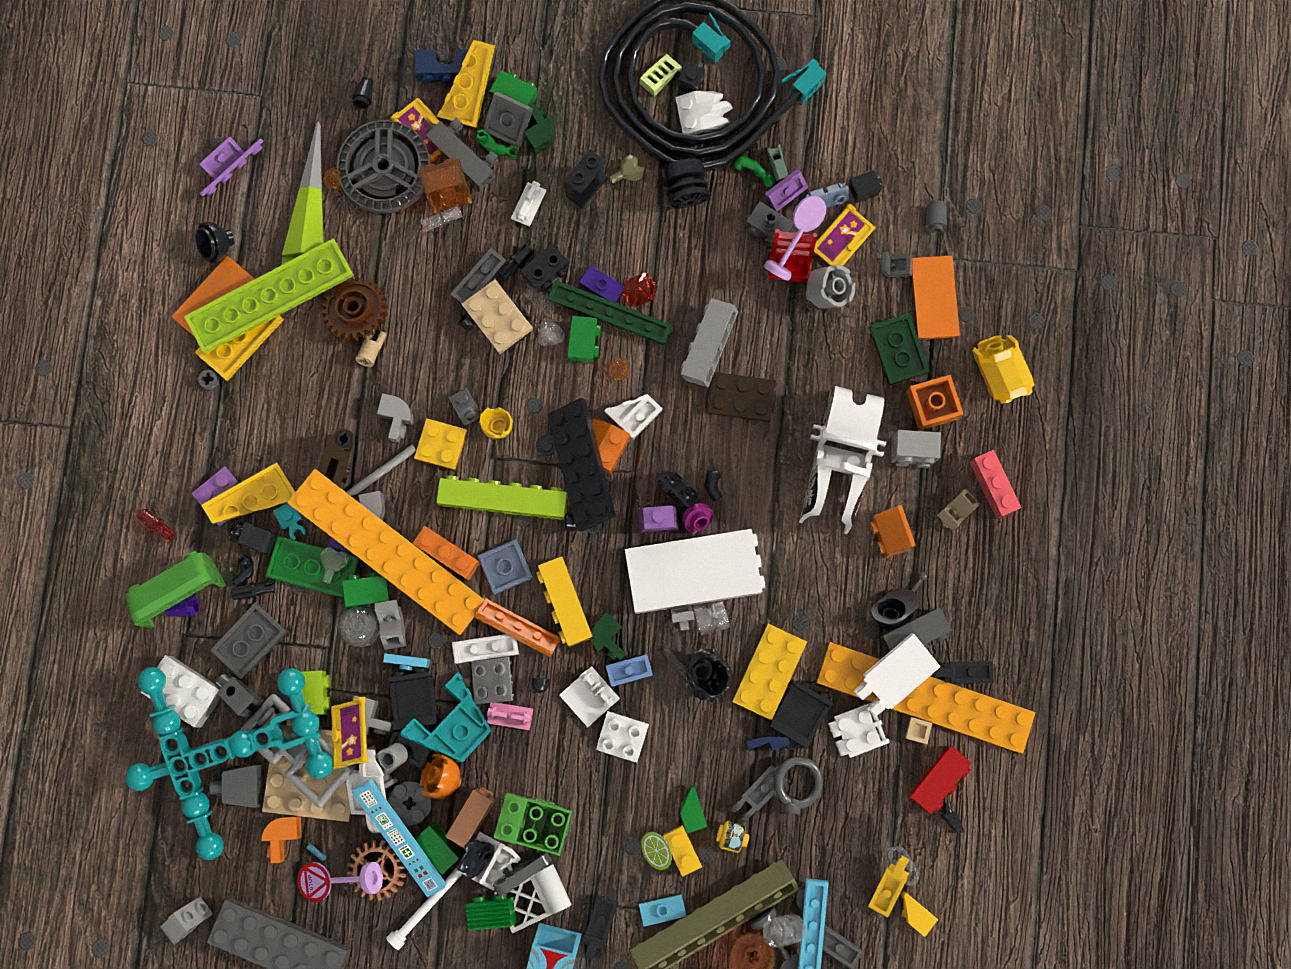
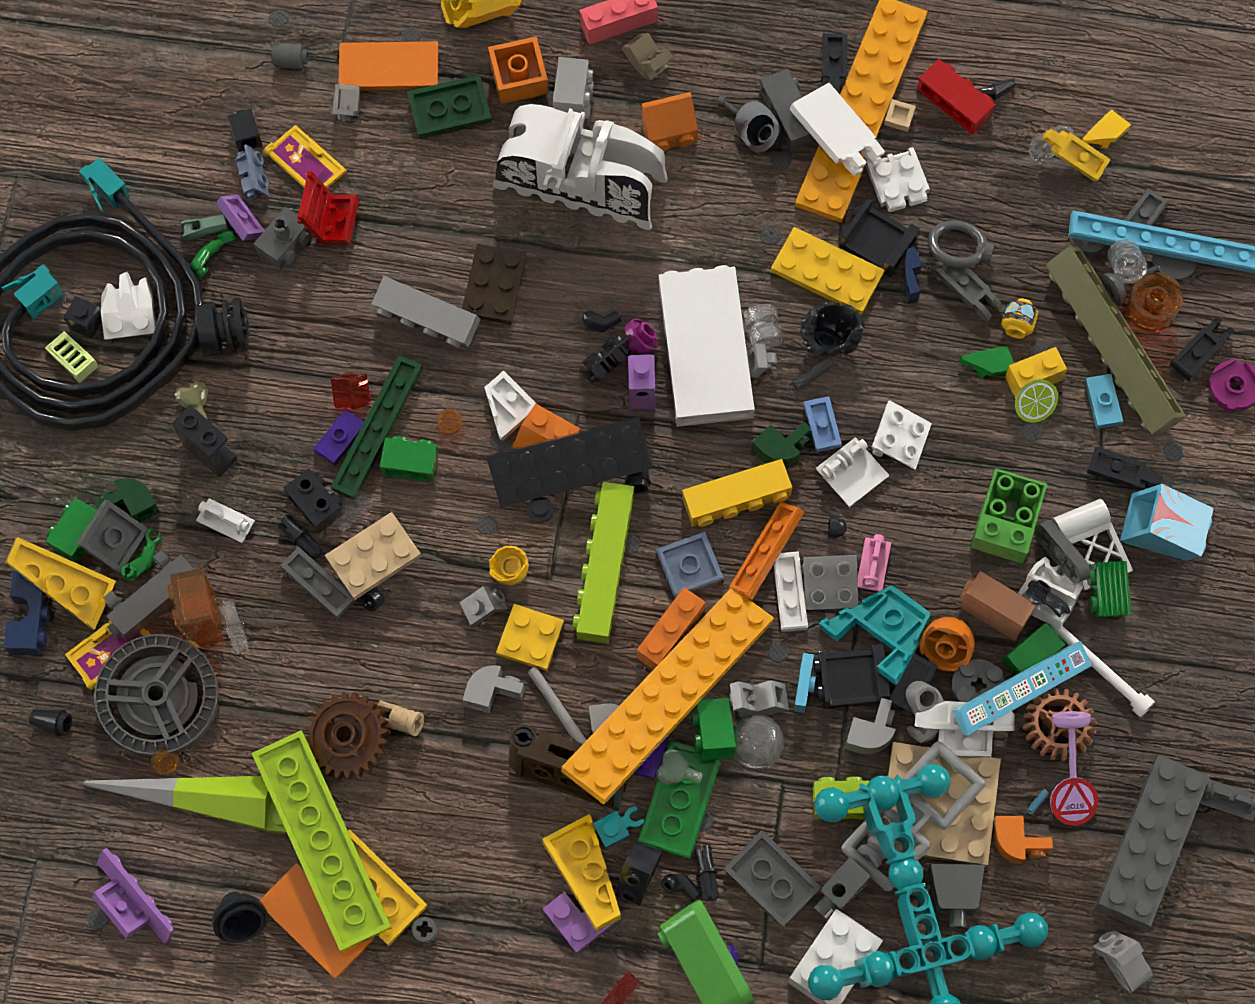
camera: 85 degrees left, 10 degrees down
(351, 723) = (887, 743): door -> none
(550, 333) = (398, 498): clear brick -> none
(806, 217) = (288, 180): lavender piece -> none
(830, 287) = (369, 171): light grey brick -> none

